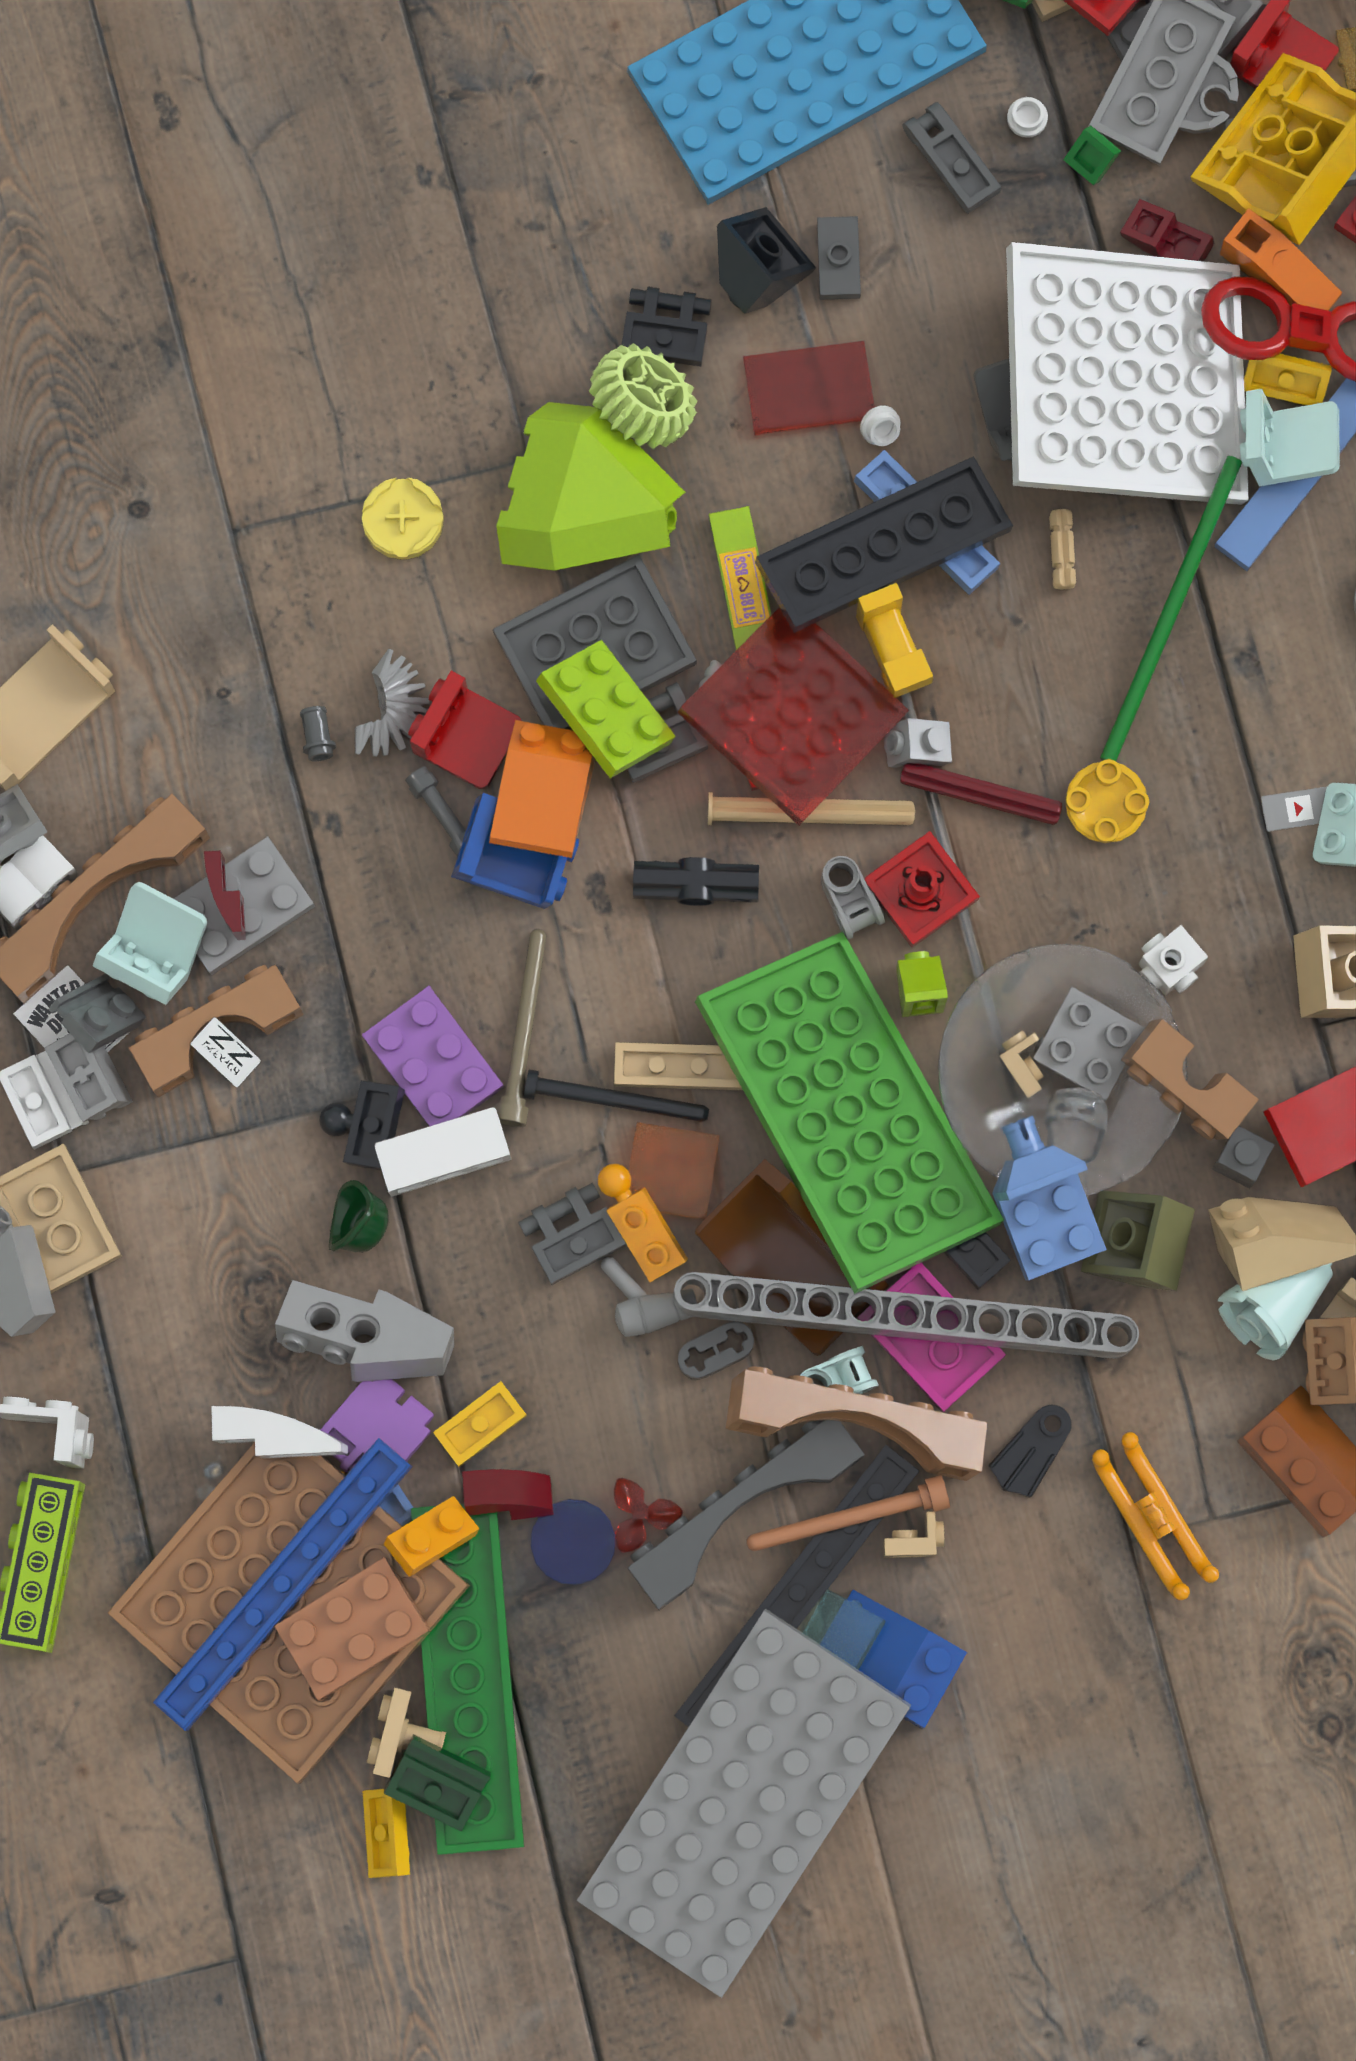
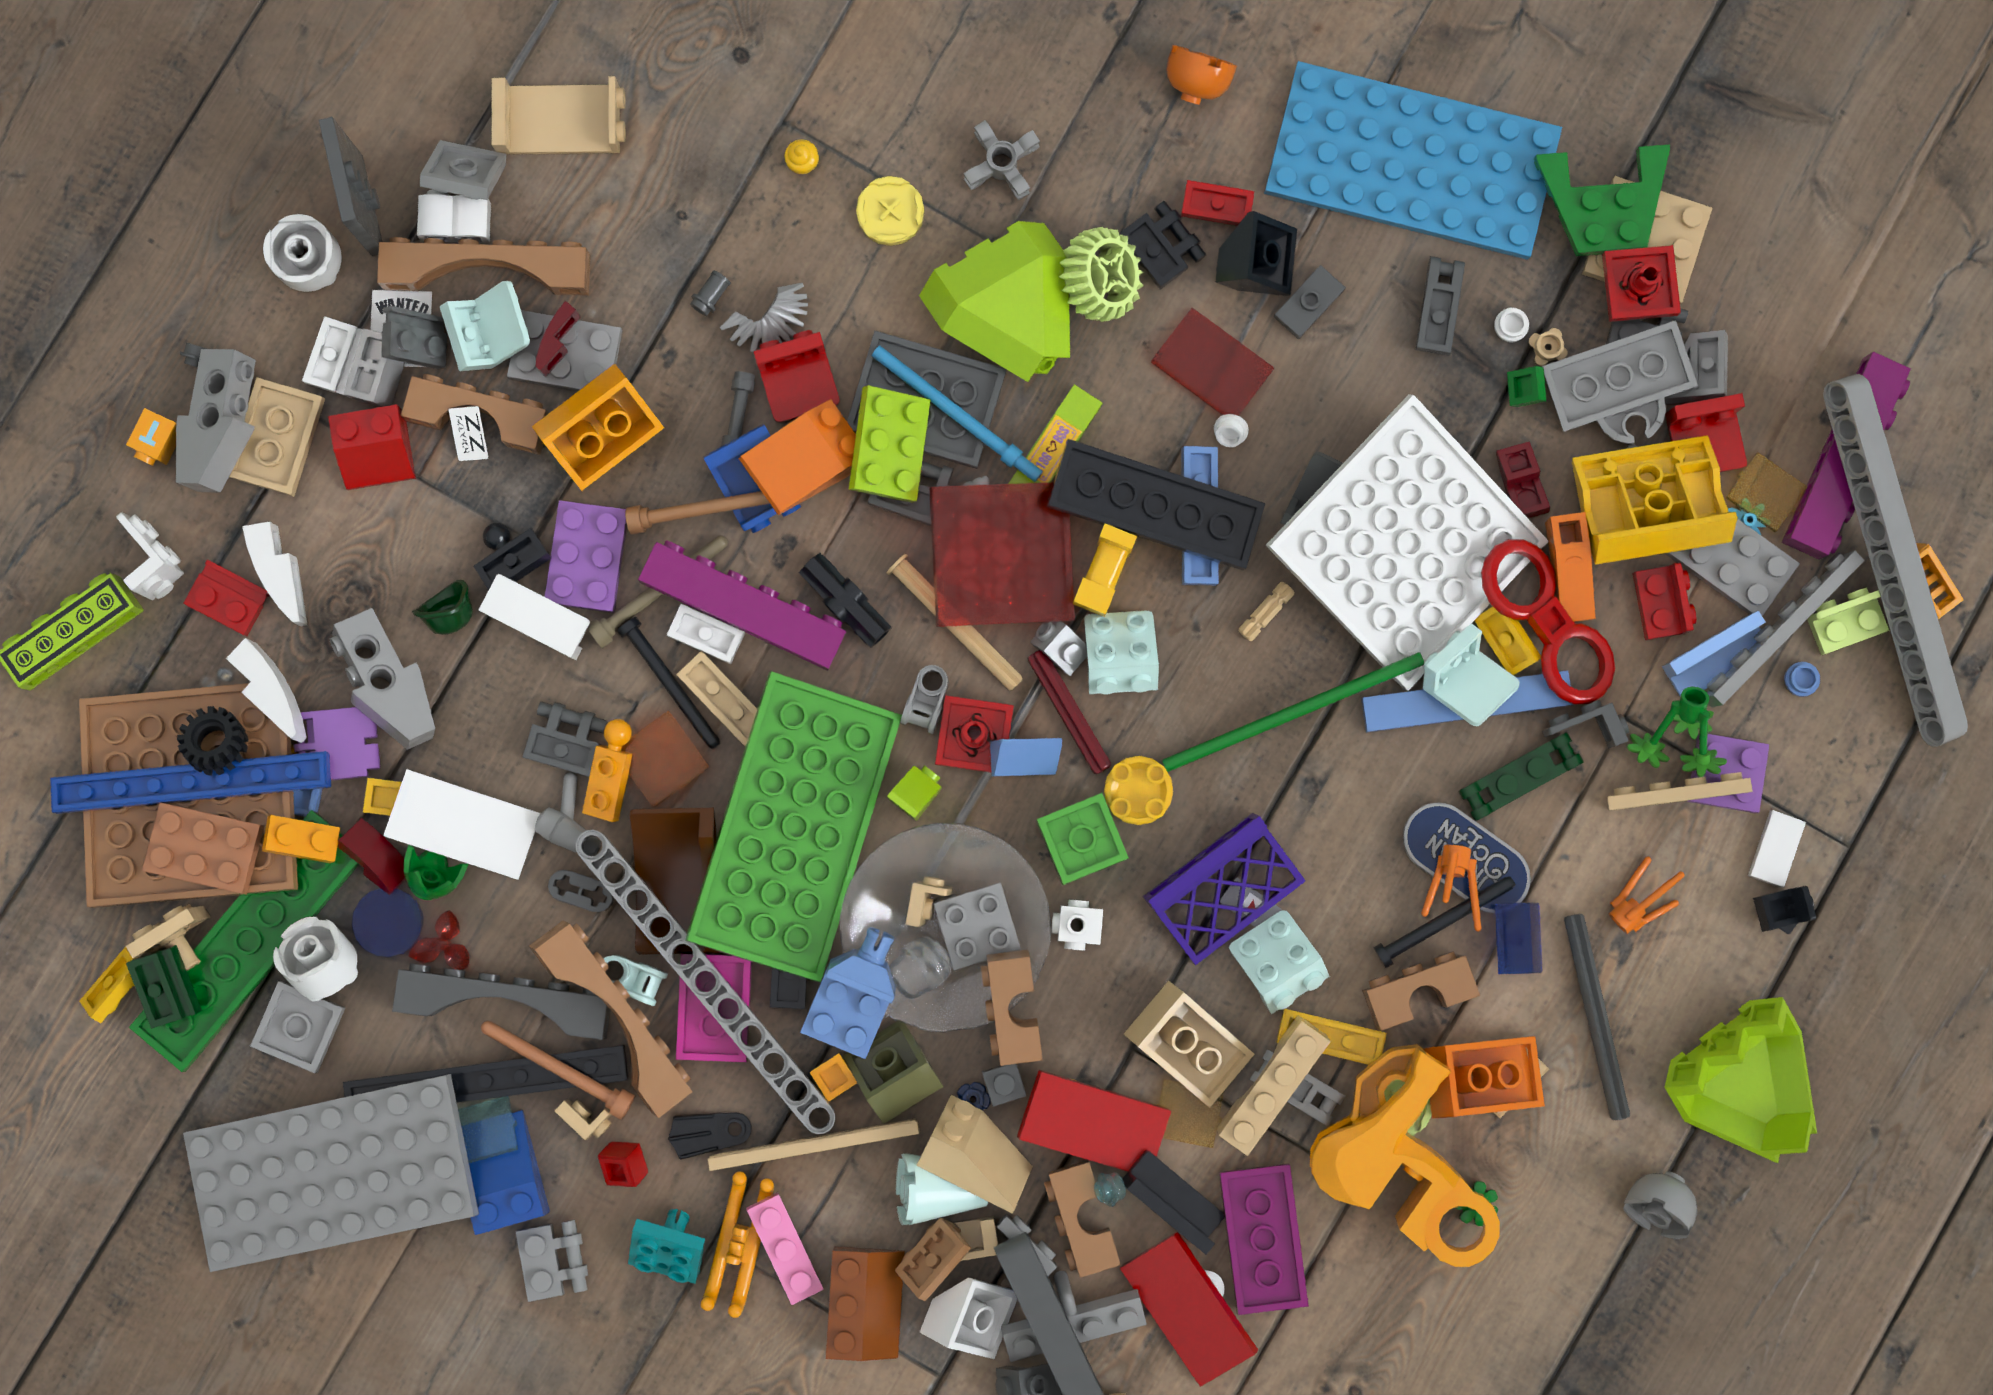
camera: 40 degrees right, 5 degrees up
(150, 1400) = (226, 598): none -> red plate
(151, 1145) = (372, 447): none -> red slope
(172, 1332) = (276, 570): none -> white slope
(250, 1513) = (202, 726): none -> black tyre
(280, 543) = (801, 156): none -> yellow plate
(337, 934) = (598, 427): none -> light orange brick
(451, 979) = (641, 518): none -> medium nougat piece
(489, 390) = (979, 174): none -> light grey pin
(546, 1627) = (316, 958): none -> white brick
(556, 155) = (1198, 74): none -> orange cylinder
(556, 1391) = (462, 824): none -> white tile
(572, 1464) = (430, 875): none -> green piece
(585, 1708) = (297, 1028): none -> light grey plate
(604, 1025) = (705, 634): none -> white plate
(614, 968) = (742, 605): none -> magenta brick
(678, 248) = (1216, 203): none -> red plate
(716, 622) = (1010, 454): none -> dark azure bar
(977, 699) = (1121, 652): none -> light aqua bracket
(983, 863) = (1025, 756): none -> medium blue slope
(986, 1548) = (623, 1164): none -> red slope
(1002, 1704) = (541, 1261): none -> light grey plate
(1076, 95) = (1554, 339): none -> tan plate
(1093, 1292) = (833, 1077): none -> light orange plate
(1100, 1578) = (667, 1248): none -> teal plate
(1102, 886) = (1082, 839): none -> bright green container
(1134, 1367) = (813, 1144): none -> tan tile
(1198, 1481) = (784, 1248): none -> bright pink plate
(1224, 1187) = (975, 1089): none -> dark blue plate
(1226, 807) = (1206, 864): none -> dark purple fence

